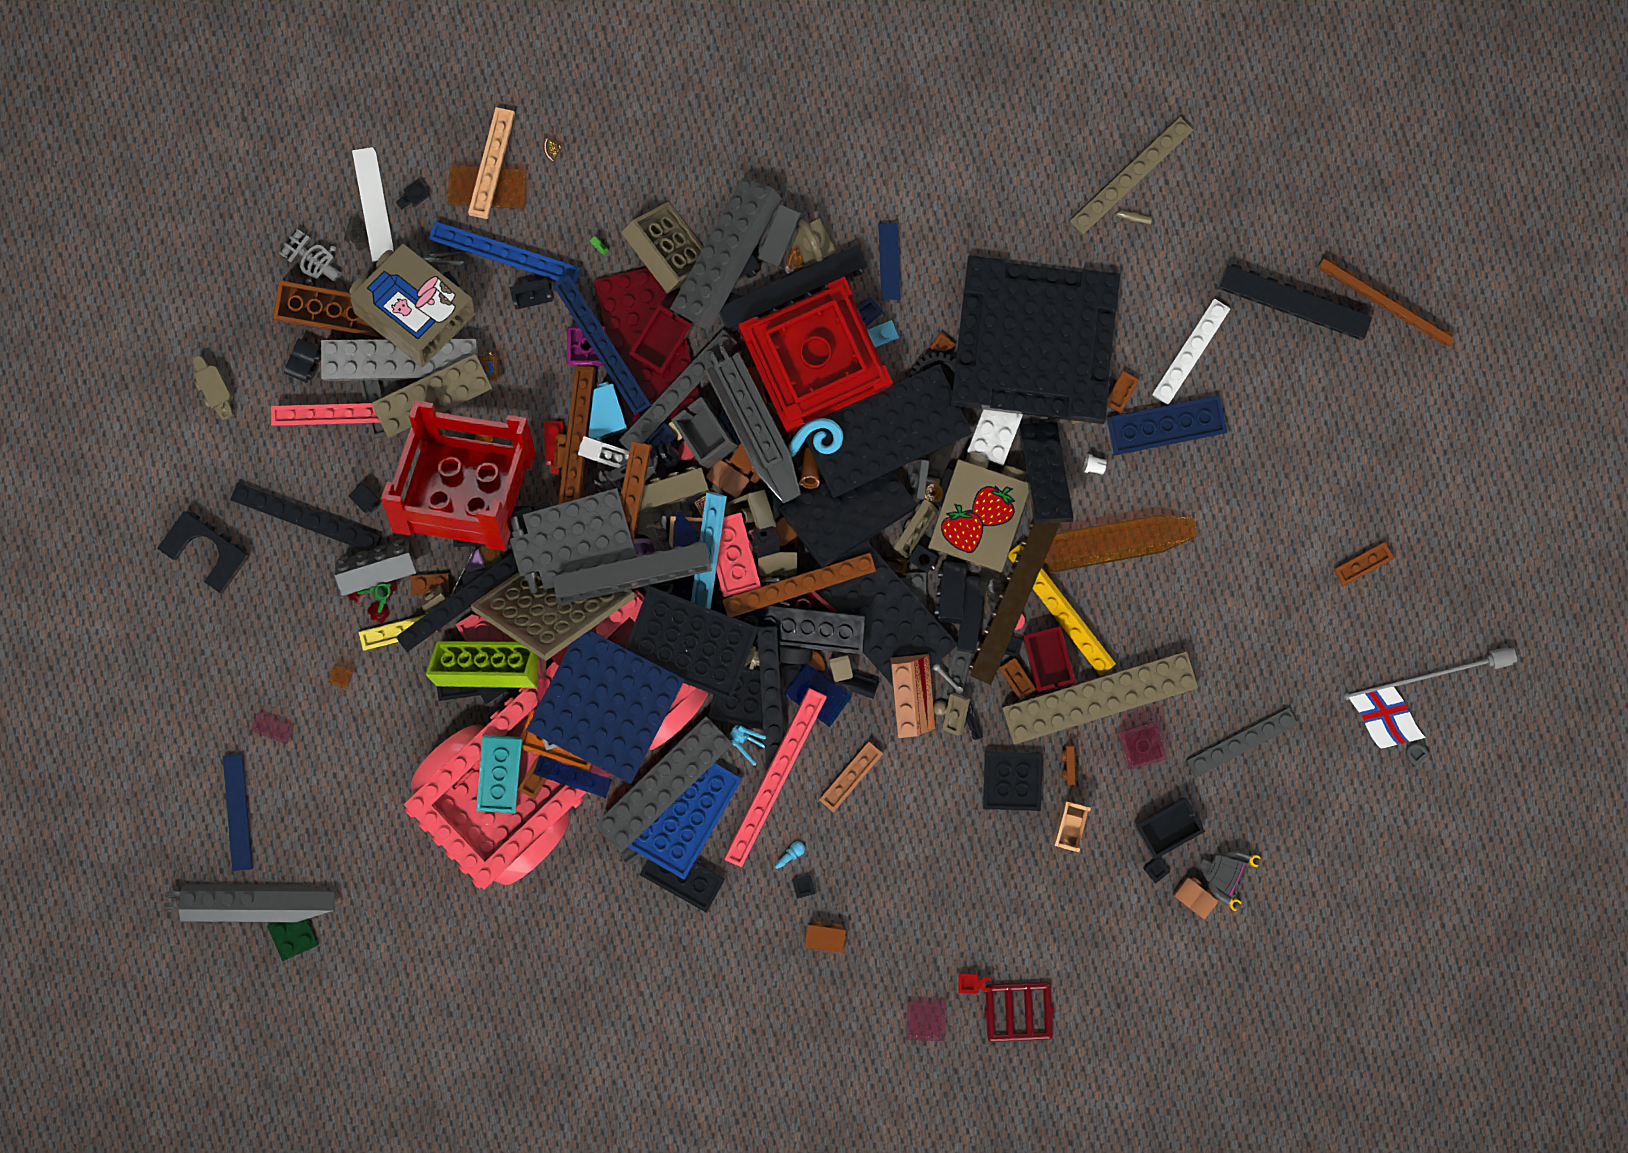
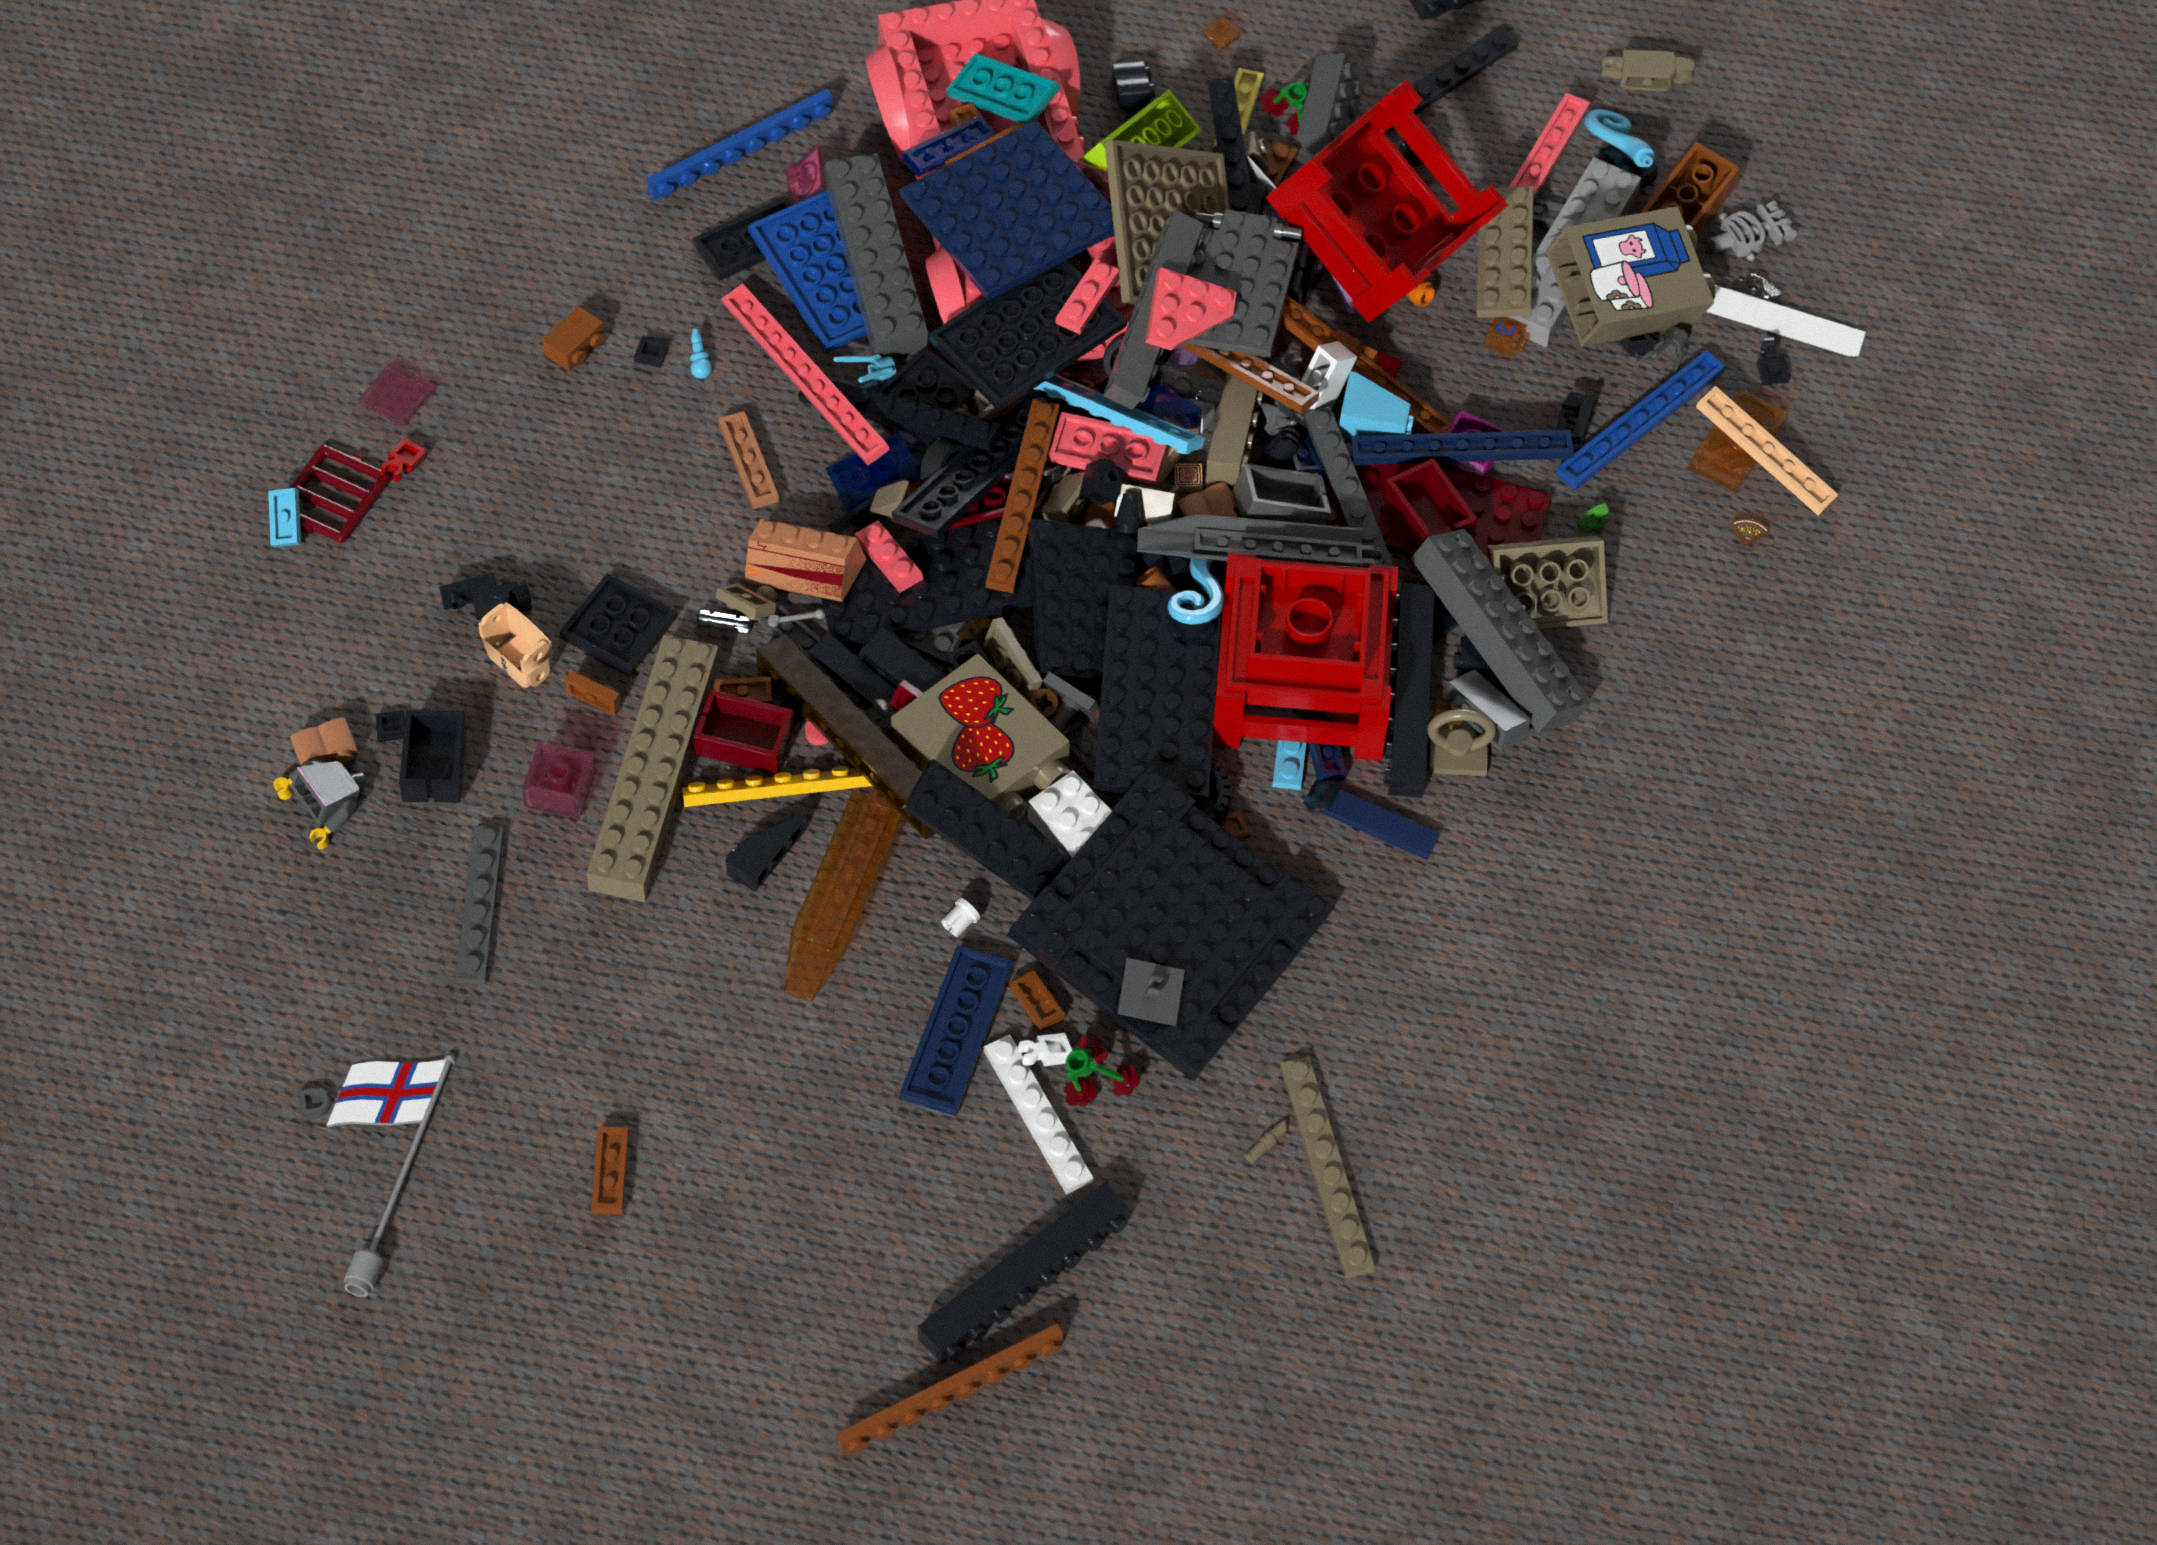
camera: 120 degrees right, 30 degrees down
(296, 357) = (1614, 131): none -> medium azure plant
(420, 709) = (1132, 84): none -> black brick
(621, 869) = (805, 177): none -> clear pink piece
(621, 931) = (733, 148): none -> blue plate
(625, 551) = (1185, 308): none -> coral plate
(647, 618) = (1087, 296): none -> coral plate
(776, 514) = (1129, 514): none -> black cone
(880, 645) = (889, 556): none -> coral plate
(892, 304) = (1322, 794): none -> black tile
(974, 574) = (904, 695): none -> dark red plate
(1041, 868) = (485, 594): none -> black plate
(1057, 1025) = (284, 517): none -> medium azure plate
(1093, 322) = (1150, 992): none -> dark grey piece
(1122, 602) = (762, 853): none -> black slope
(1150, 365) = (1049, 1048): none -> white plate
(1161, 336) = (1082, 1063): none -> dark red plant

